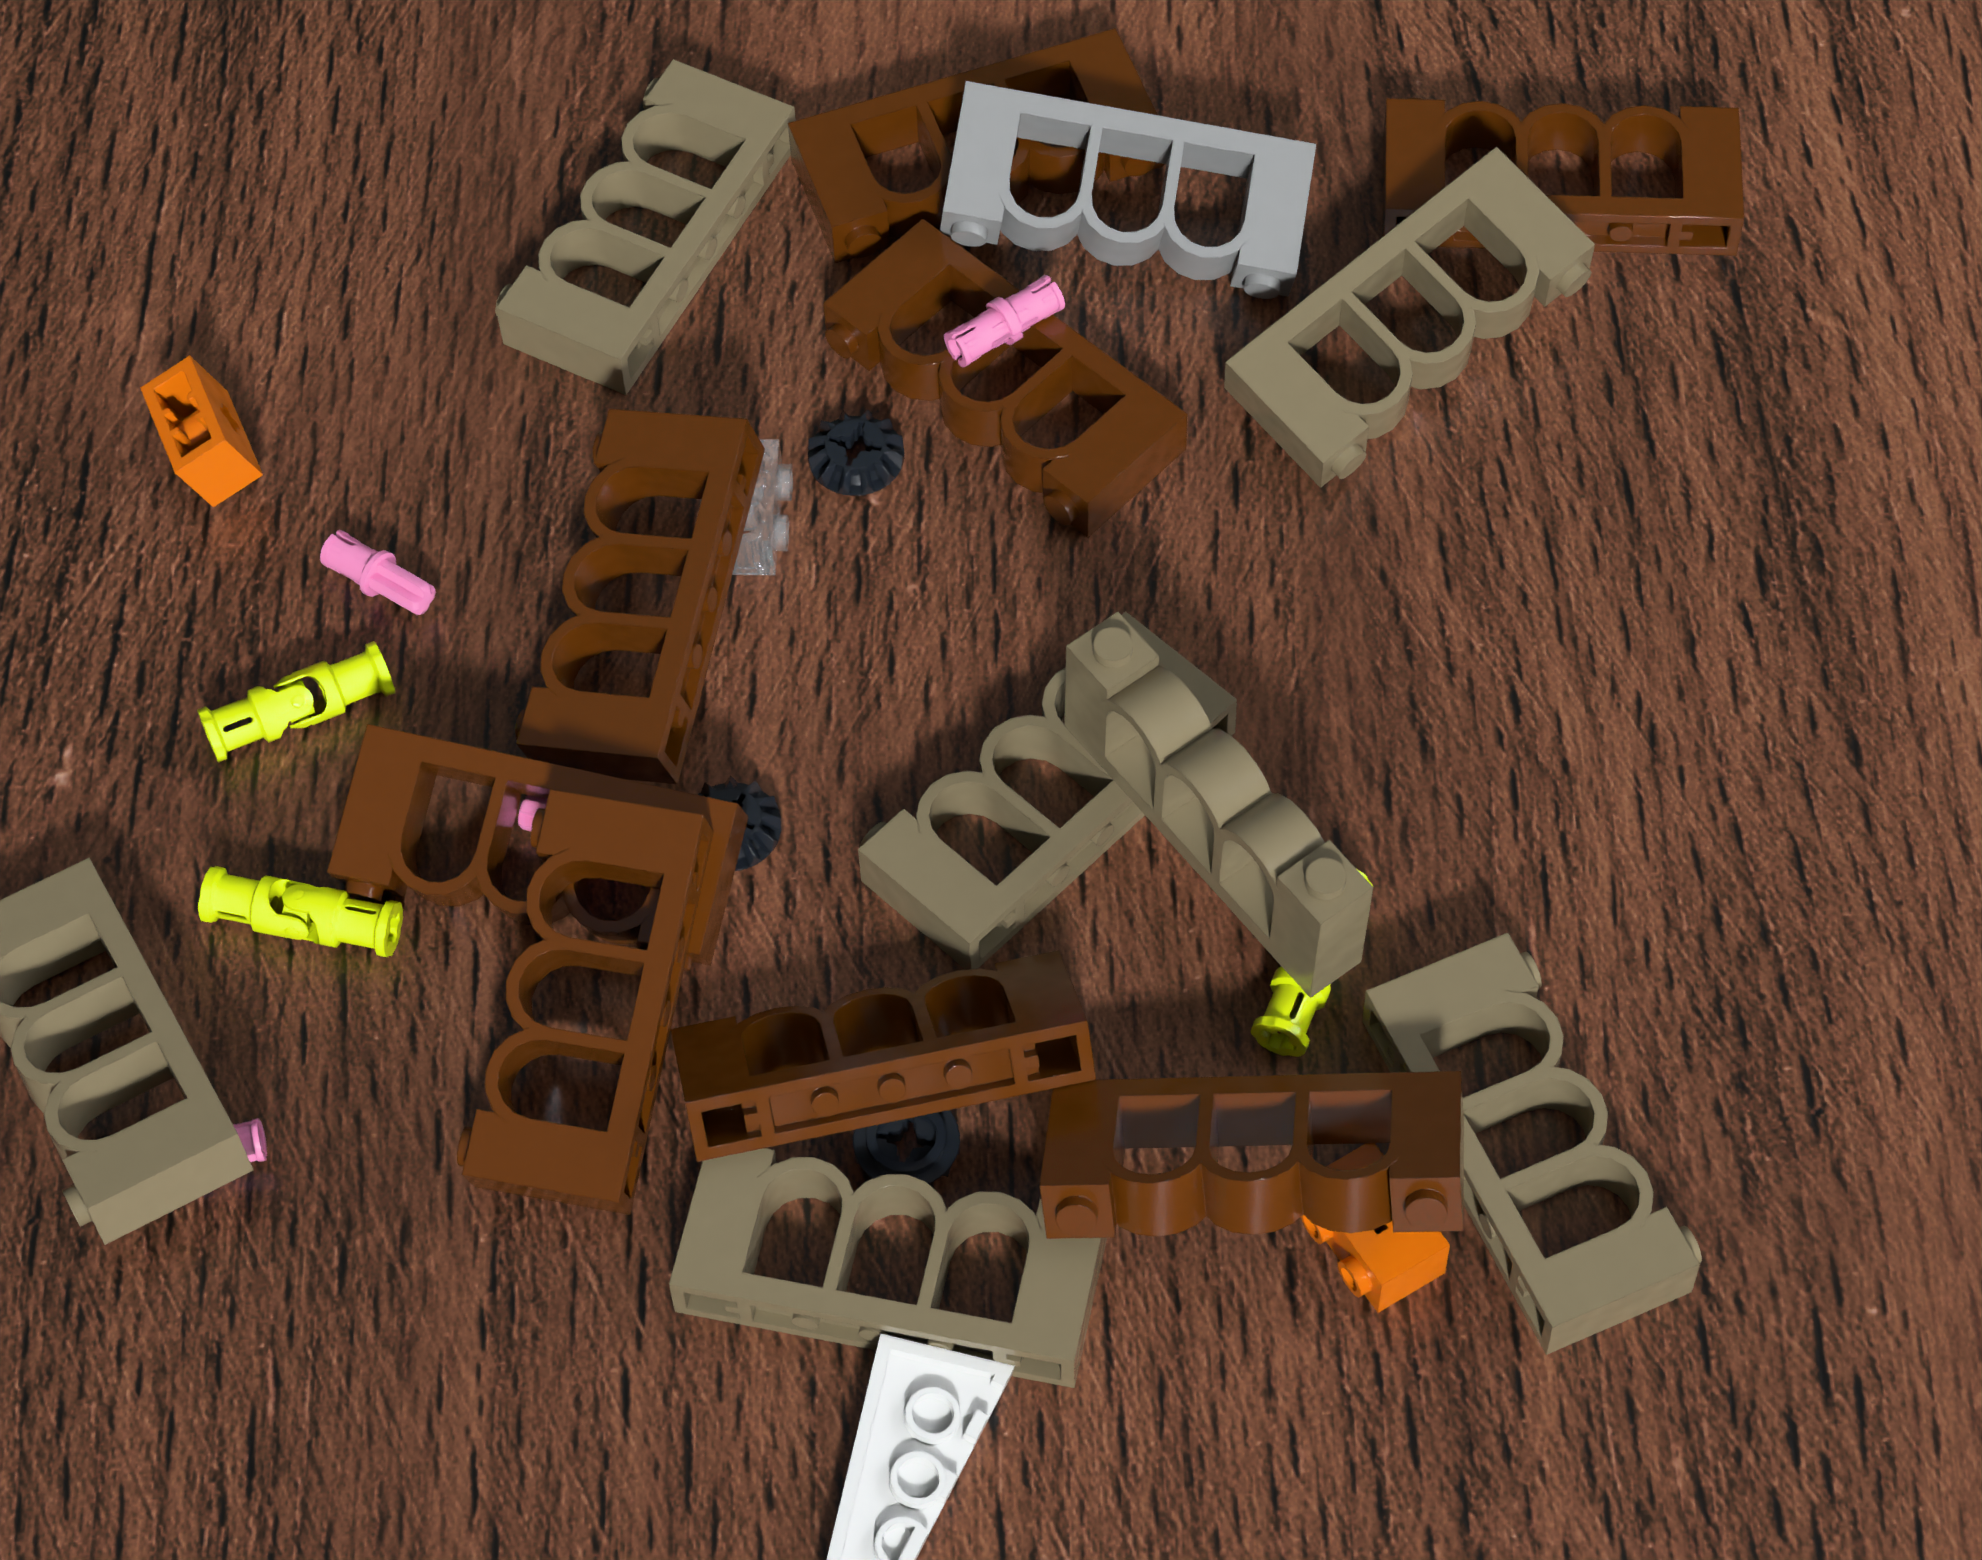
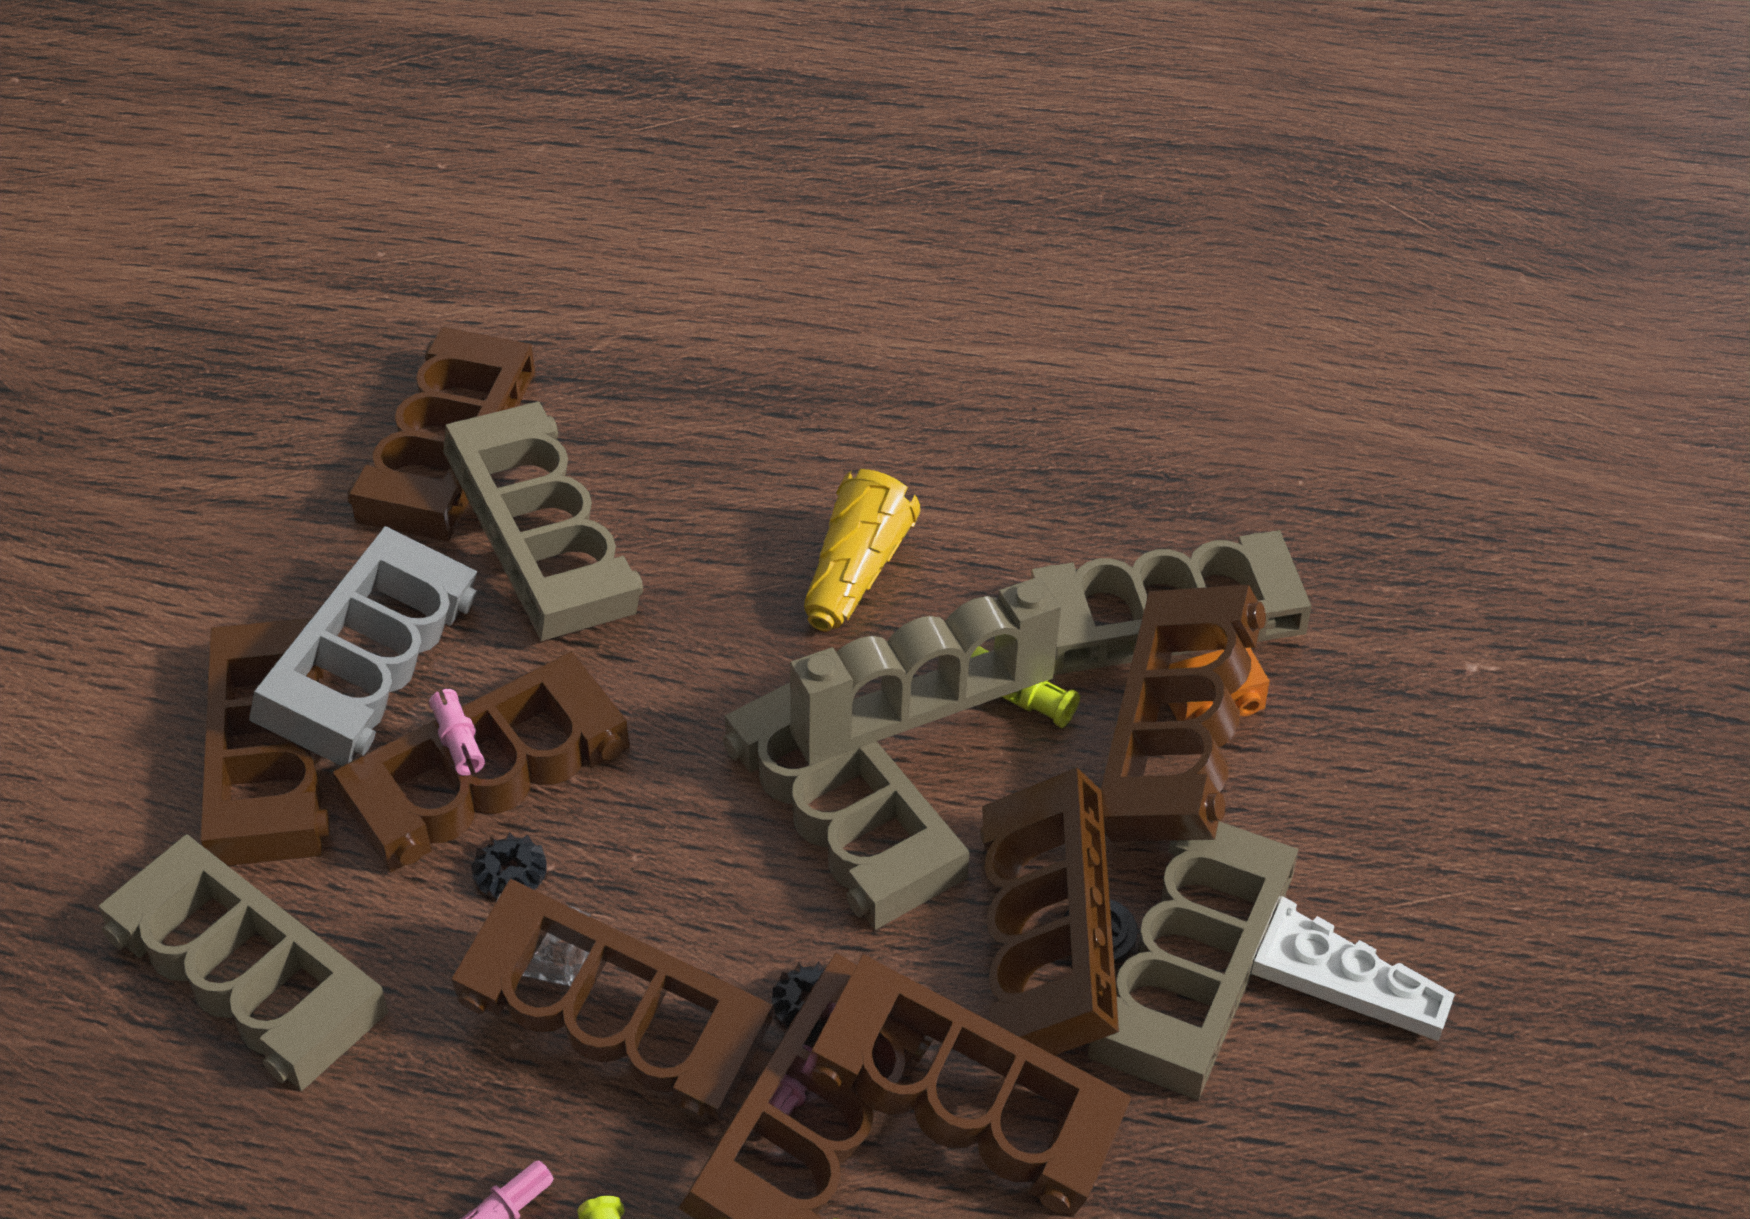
camera: 80 degrees left, 10 degrees down
(1512, 707) = (861, 537): none -> yellow cone

